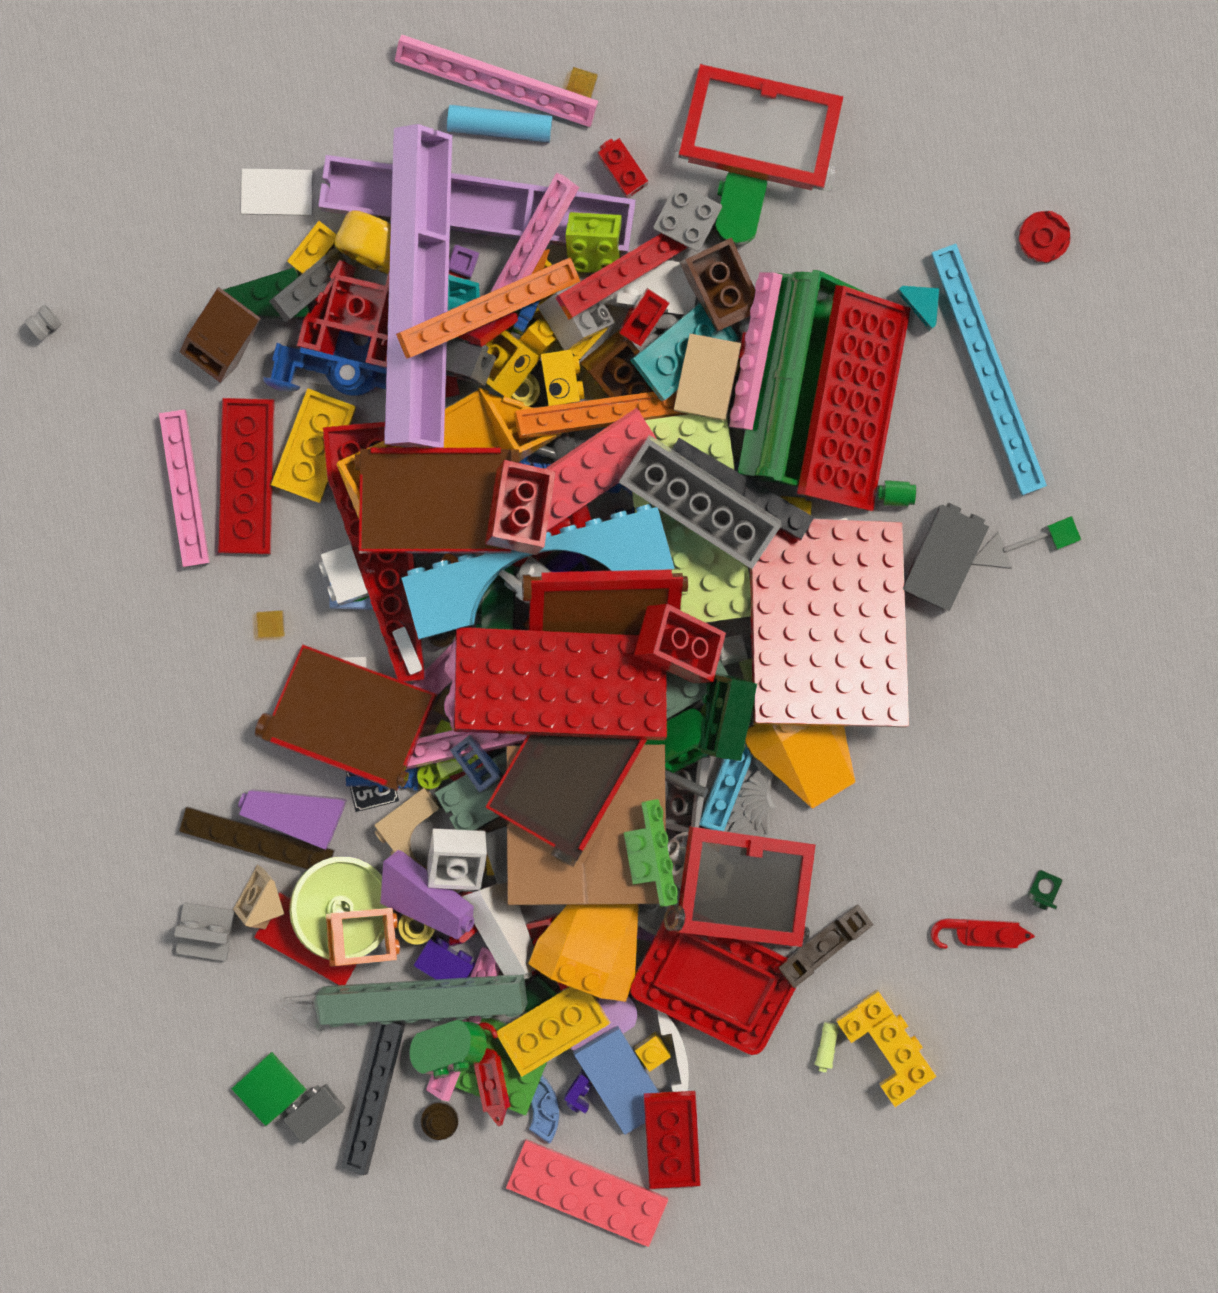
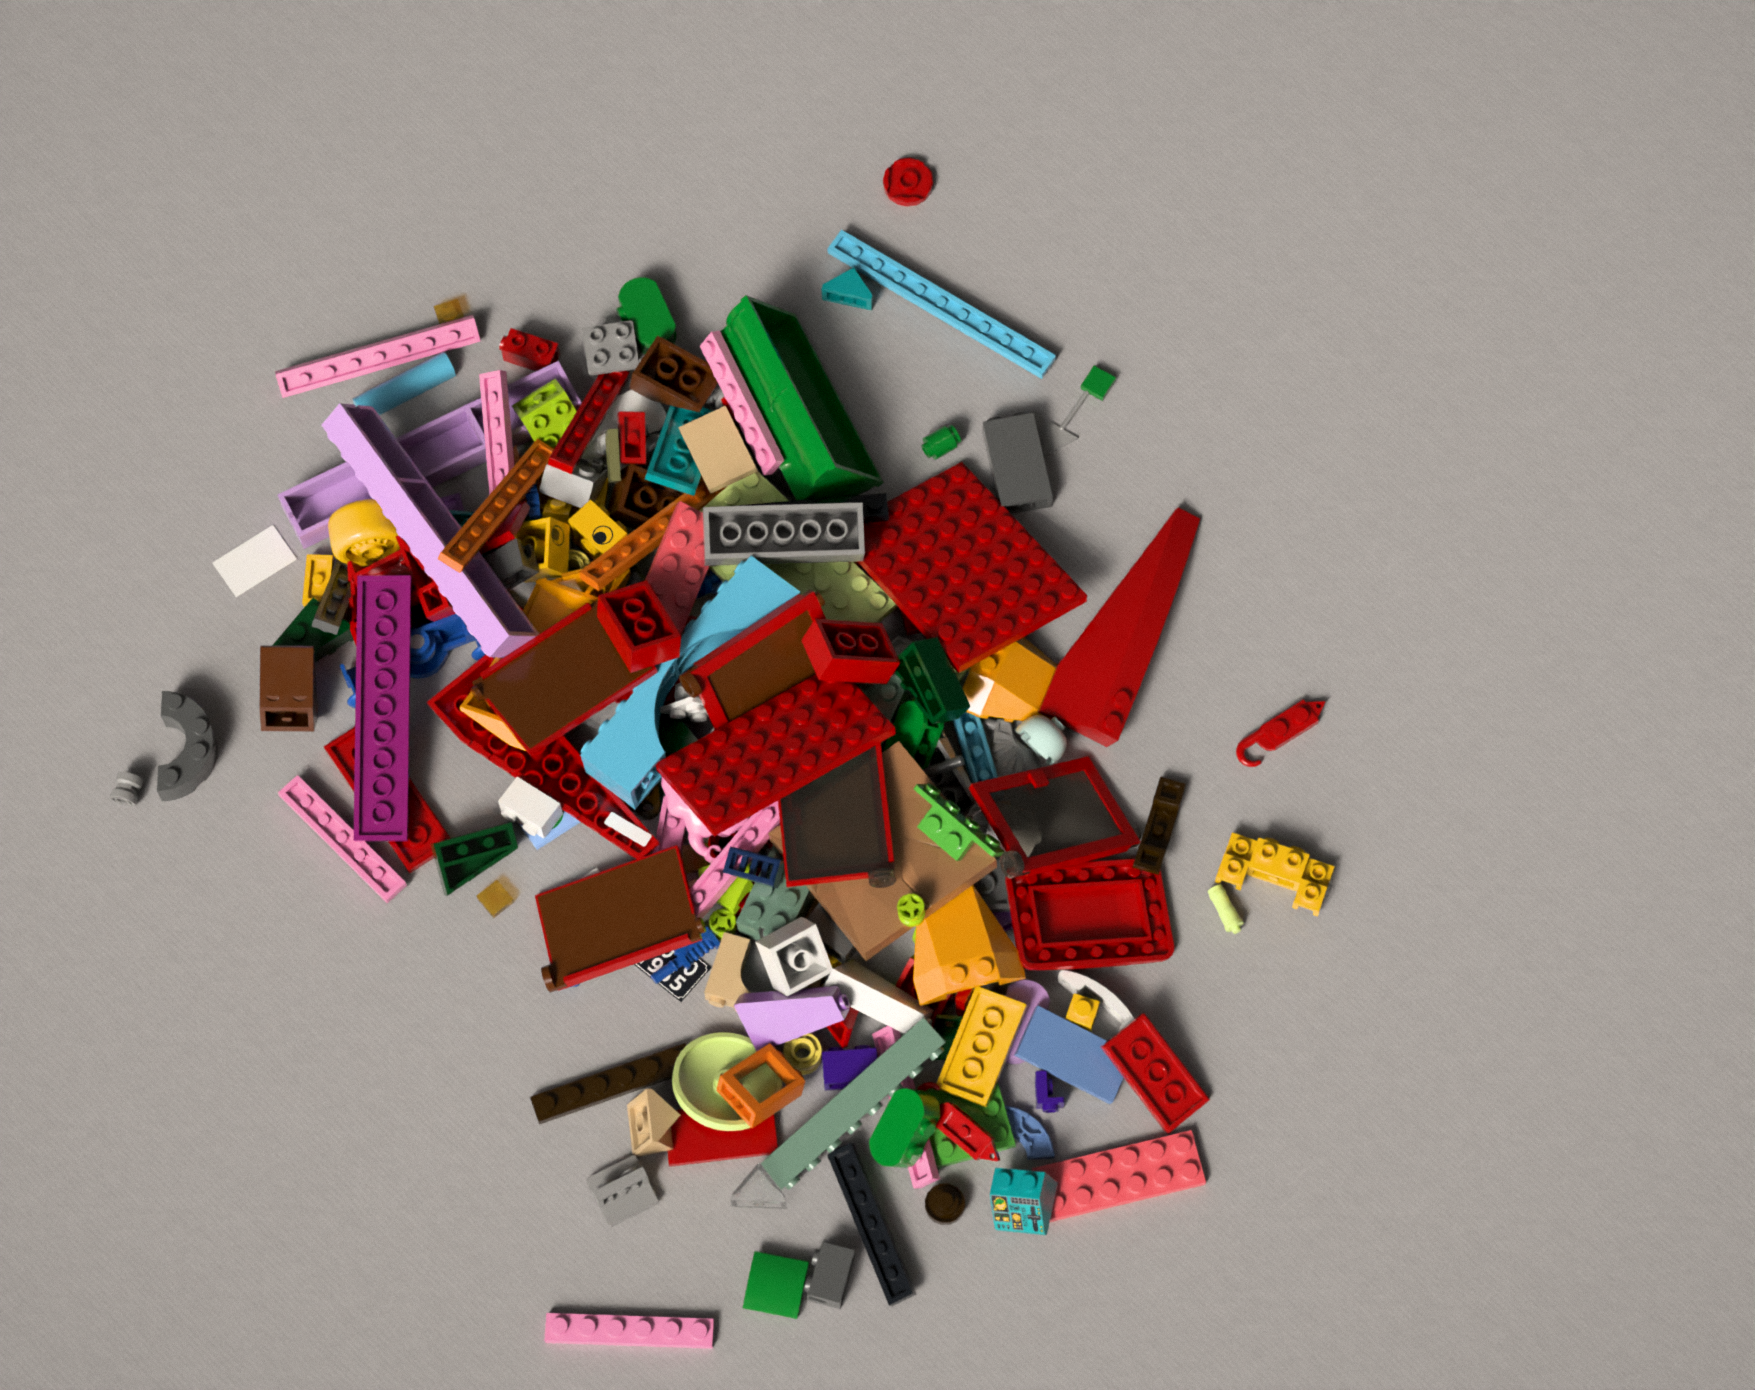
camera: 30 degrees left, 20 degrees down
(124, 327) = (200, 749): none -> dark grey brick
(135, 1042) = (629, 1330): none -> bright pink plate
(274, 578) = (470, 854): none -> dark green wedge
(282, 409) = (382, 708): none -> magenta plate
(299, 815) = (628, 1036): medium lavender slope -> none
(303, 460) = (433, 746): yellow plate -> none
(498, 1164) = (1022, 1200): none -> teal slope
(566, 903) = (910, 903): none -> lime wheel
(618, 320) = (612, 456): none -> olive tile
(761, 129) = (621, 249): door -> none
(788, 811) = (1044, 737): none -> light aqua cylinder
(854, 399) = (849, 388): red plate -> none
(888, 784) = (1107, 663): none -> red wedge
(1044, 900) = (1304, 667): dark green bracket -> none

